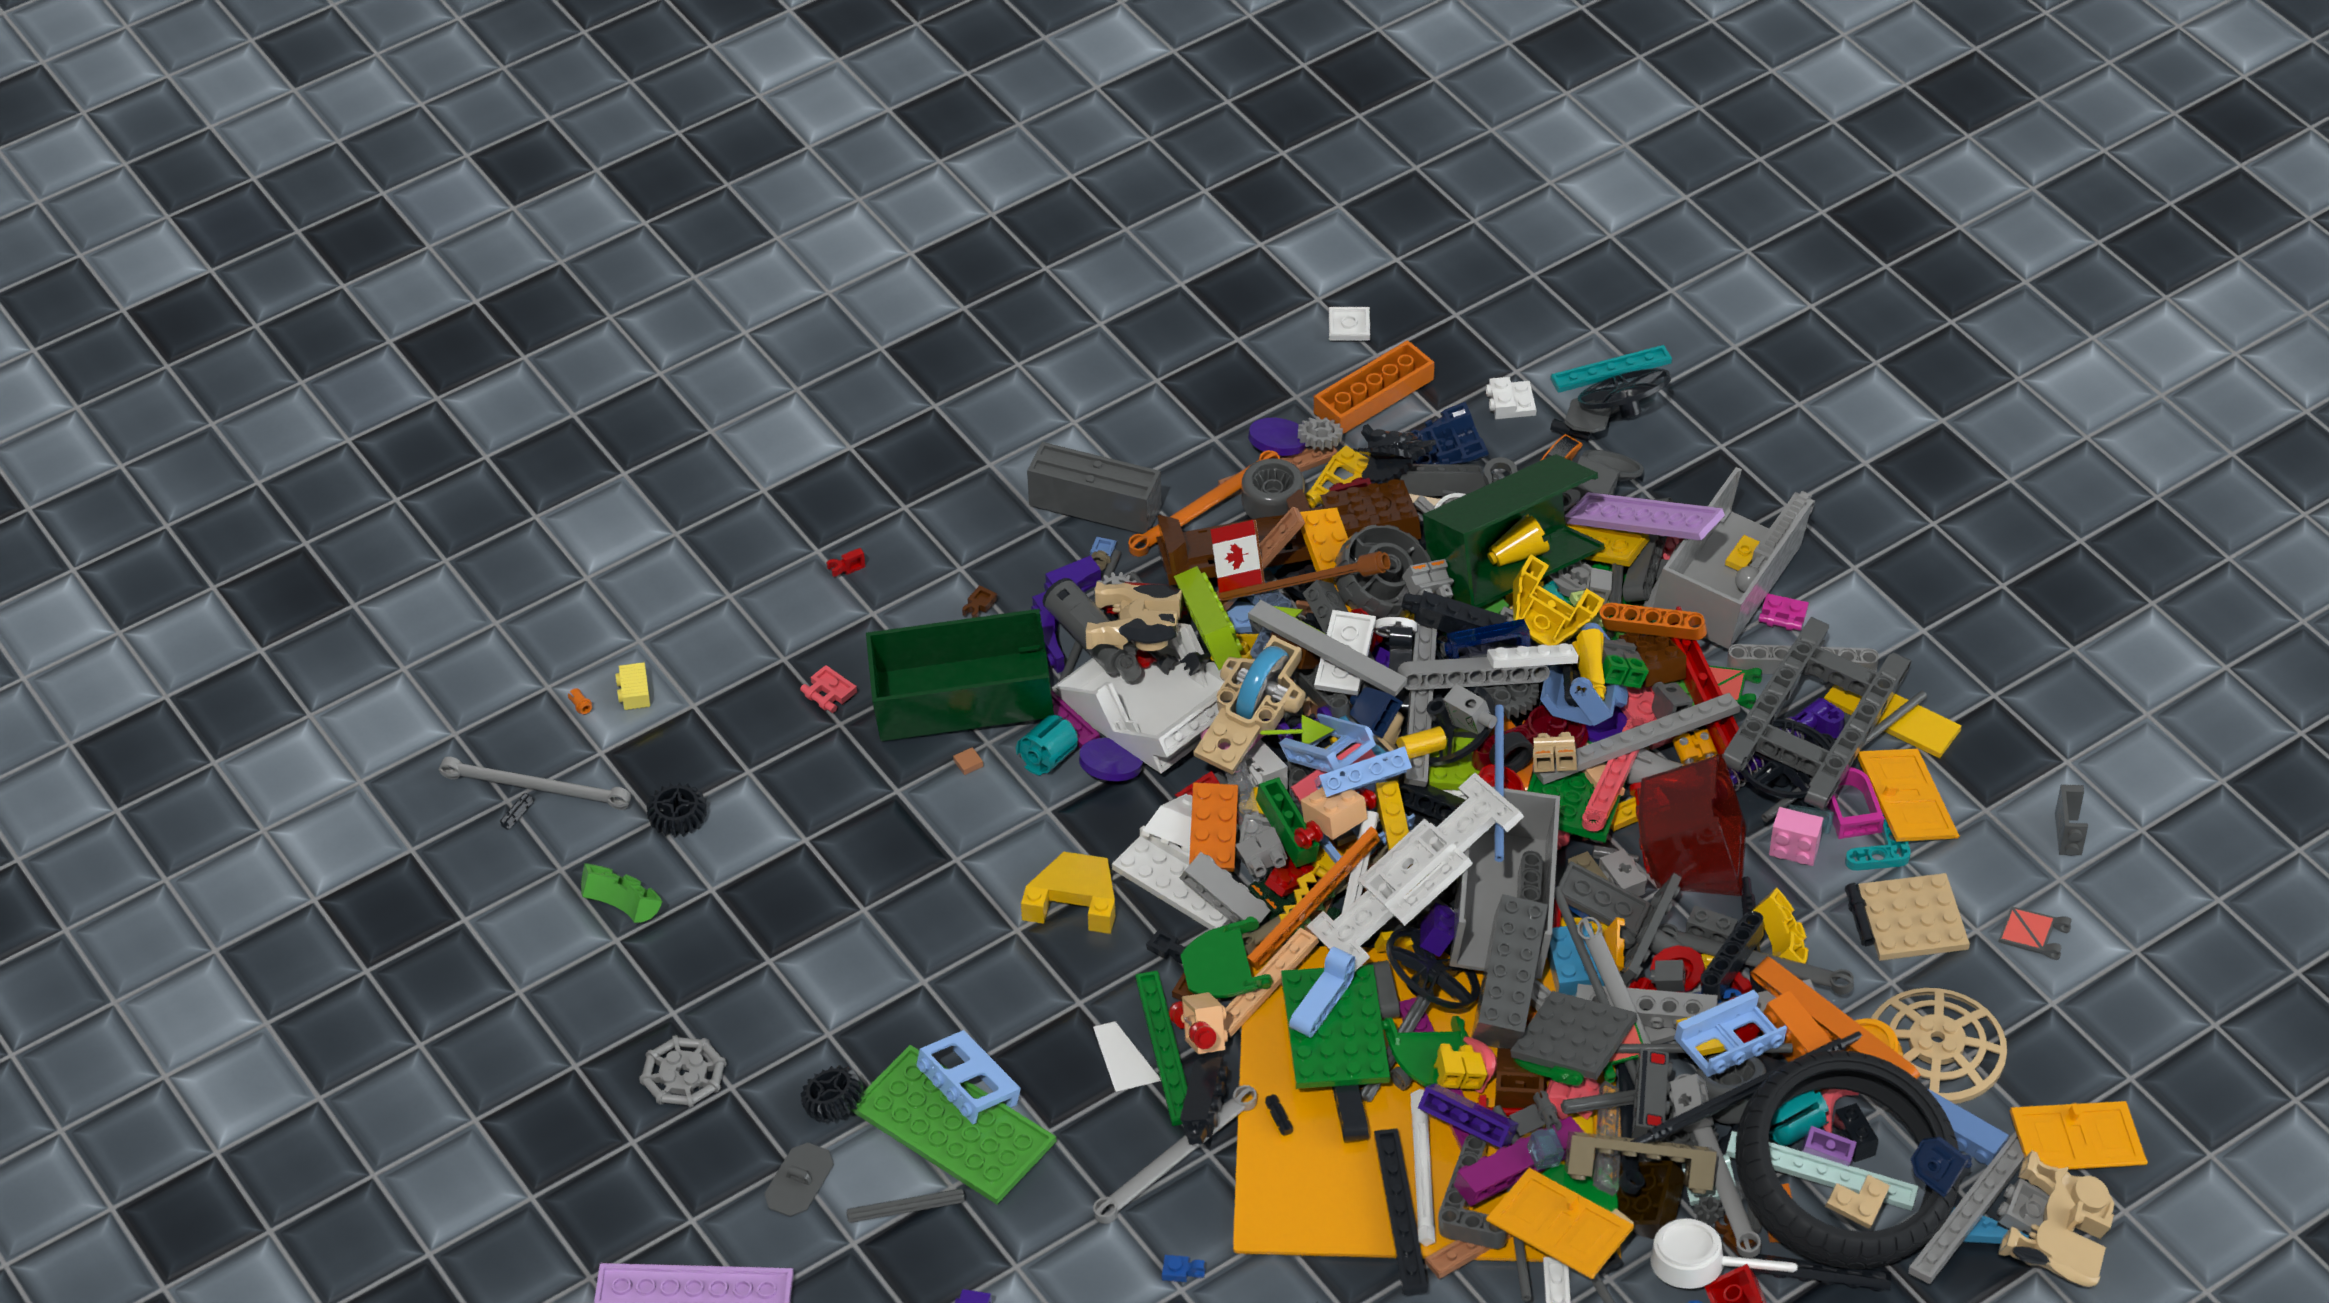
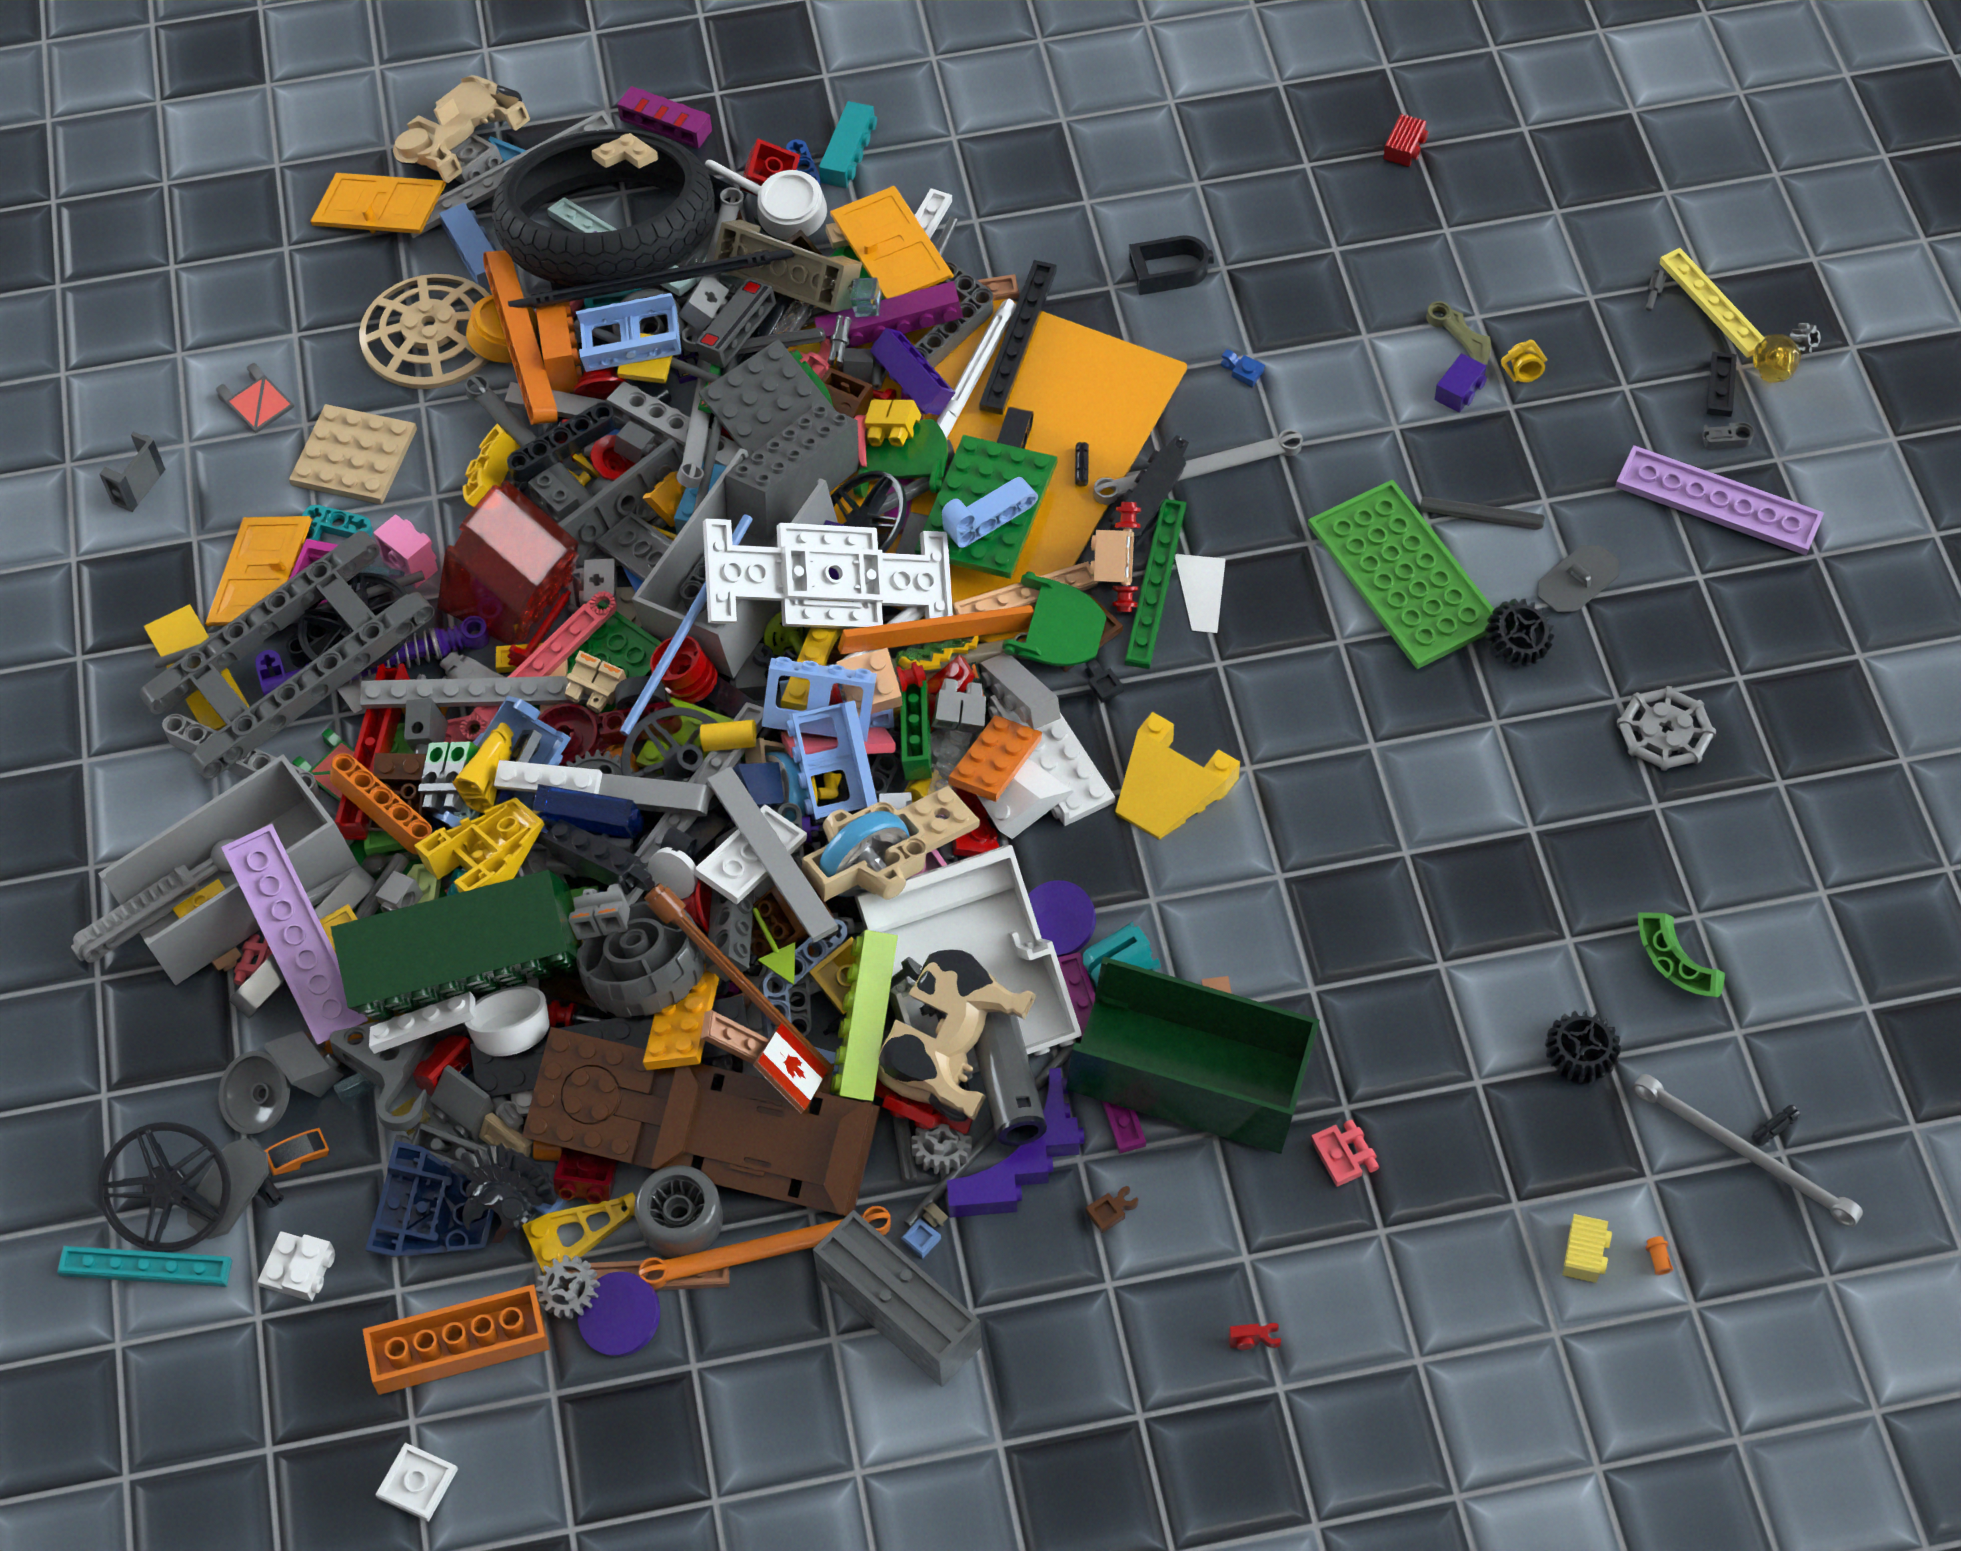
camera: 155 degrees left, 10 degrees up
(976, 1064) = (1356, 603): light blue window -> none
(1310, 730) = (843, 796): lime piece -> none
(1468, 710) = (663, 724): light grey torso -> none
(1857, 907) = (398, 475): black pin -> none
(1939, 1164) = (533, 144): dark blue piece -> none

